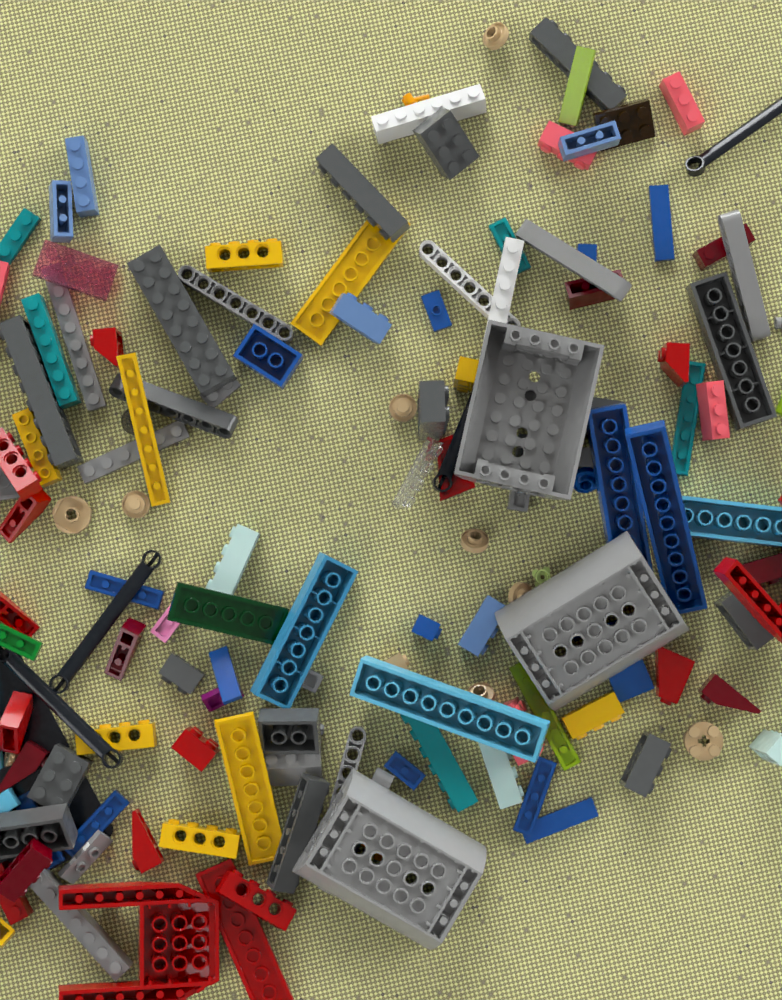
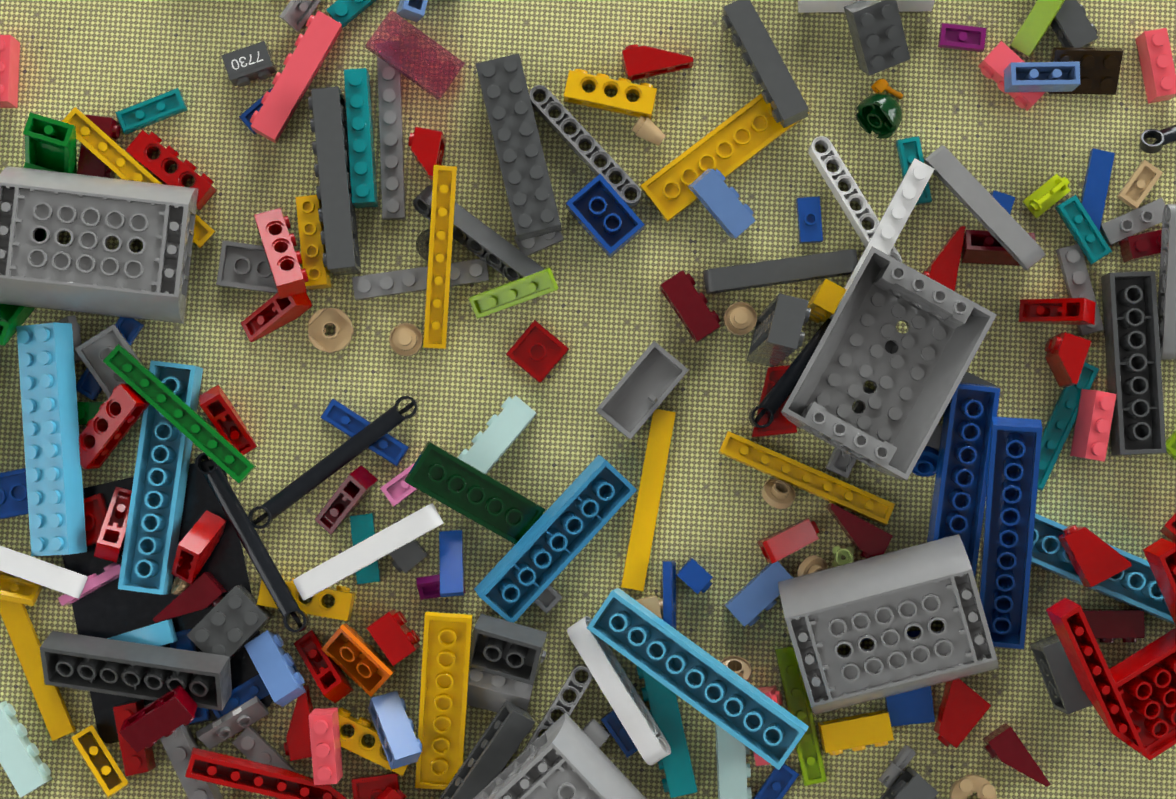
camera: 10 degrees right, 0 degrees up
(107, 801) = (275, 668): none -> medium blue brick
(112, 872) = (259, 750): none -> light grey plate
(146, 790) = (323, 669): none -> red slope
(152, 684) = (362, 528): none -> teal tile
(154, 685) = (368, 551): none -> white beam
(166, 852) = (325, 746): none -> coral brick
(172, 775) = (358, 659): none -> orange slope
(212, 441) = (513, 293): none -> lime tile
(218, 823) = (395, 729): none -> medium blue brick
(246, 482) = (537, 351): none -> red tile
(267, 220) = (649, 62): none -> red slope
(283, 276) = (648, 131): none -> tan cone
(339, 489) = (641, 390): none -> light grey container
(359, 409) = (690, 306): none -> dark red brick
(371, 576) = (648, 500): none -> yellow tile
(392, 739) = (620, 692): none -> white beam
(409, 647) = (669, 593): none -> blue tile
(415, 478) = (731, 403): clear plate -> none
(424, 360) = (780, 271): none -> dark grey beam
(463, 184) = (881, 85): none -> light orange hand
(468, 208) = (879, 114): none -> dark green cylinder
(494, 521) = (806, 478): none -> yellow plate
(494, 576) = (788, 540): none -> red slope
(517, 126) = (962, 37): none -> magenta plate
(553, 554) = (863, 535): none -> dark red slope
(556, 318) = (946, 263): none -> red slope
(623, 235) = (1047, 195): none -> neon yellow hinge
(634, 733) = (897, 766): none -> light grey axle
(658, 326) = (1058, 311): none -> red slope
(660, 254) = (1083, 229): none -> teal tile
(671, 303) = (1078, 282): none -> light grey plate
(695, 204) = (1139, 184): none -> tan plate
(698, 236) = (1133, 222): none -> light grey plate
(739, 517) = (1091, 556): none -> red slope

